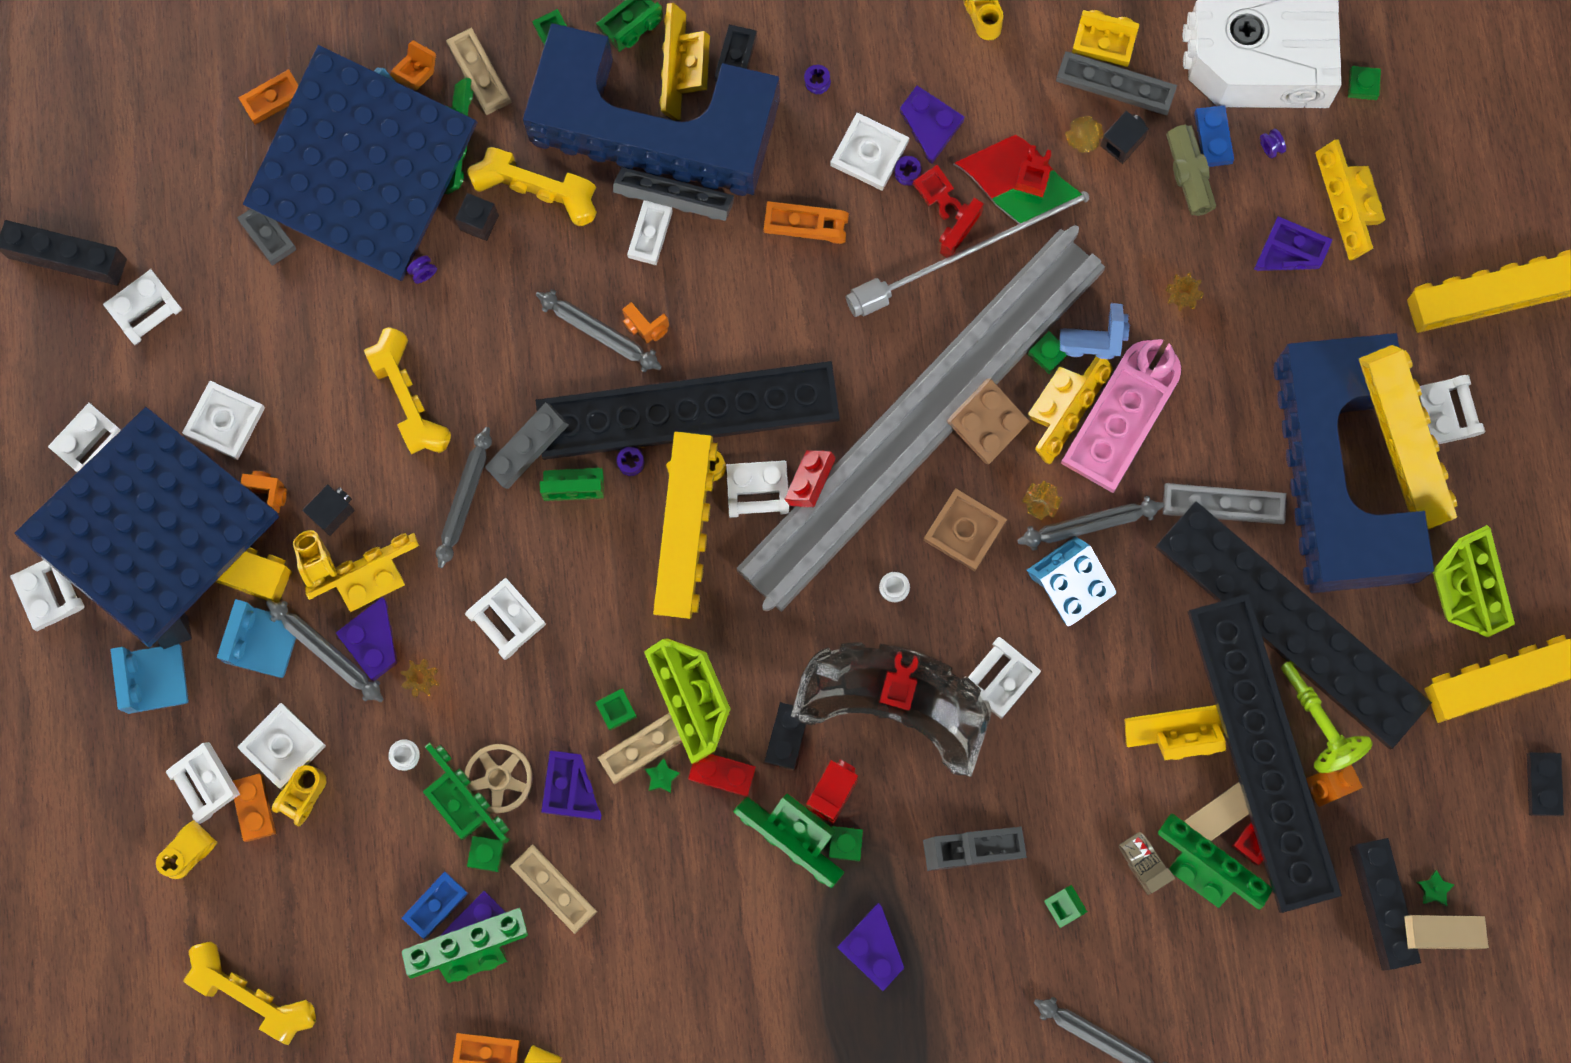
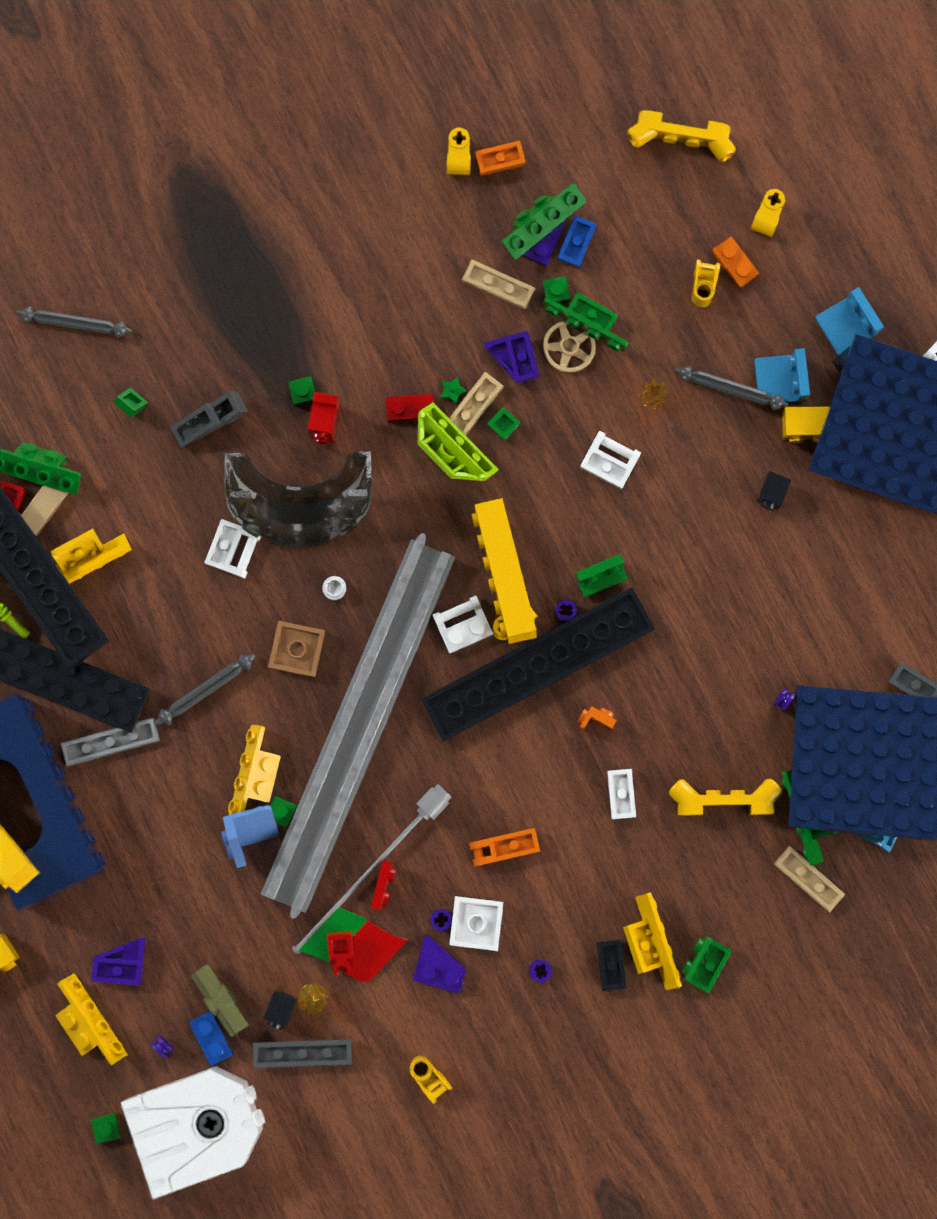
camera: 155 degrees right, 5 degrees up
(209, 778) = (774, 268): white plate -> none
(223, 420) = (882, 529): white plate -> none
(262, 483) = (832, 492): orange bracket -> none
(281, 745) = (733, 310): white plate -> none
(312, 558) = (767, 447): yellow piece -> none
(369, 576) = (725, 453): yellow bracket -> none
(371, 640) = (702, 409): dark purple wing -> none
(384, 361) = (781, 619): yellow plate -> none
(404, 755) = (643, 337): white plate -> none
(415, 67) = (859, 860): orange bracket -> none
(463, 497) = (678, 537): dark grey wheel -> none
(477, 217) = (759, 755): black brick -> none
(526, 445) = (646, 591): dark grey plate -> none
(543, 24) = (765, 934): green plate -> none
(598, 330) = (630, 702): dark grey wheel -> none
(673, 194) = (615, 831): dark grey plate -> none
(717, 148) = (719, 865): dark blue arch -> none
(785, 738) = (373, 440): black plate -> none
(795, 833) = (342, 380): green bracket -> none
(810, 478) = (425, 643): plate -> none
(873, 949) = (257, 325): dark purple wing -> none
(898, 686) = (303, 512): red plate -> none
(935, 188) = (413, 911): red plate -> none
(987, 421) = (308, 737): medium nougat plate -> none
(1042, 500) = (246, 691): clear yellow gear -> none
(1073, 580) = (205, 640): bracket -> none
(1105, 37) = (322, 1087): yellow bracket -> none
(1124, 414) = (207, 782): bright pink plate -> none
(1145, 863) = (82, 452): dark tan leg -> none
(1184, 283) = (185, 897): clear yellow gear -> none

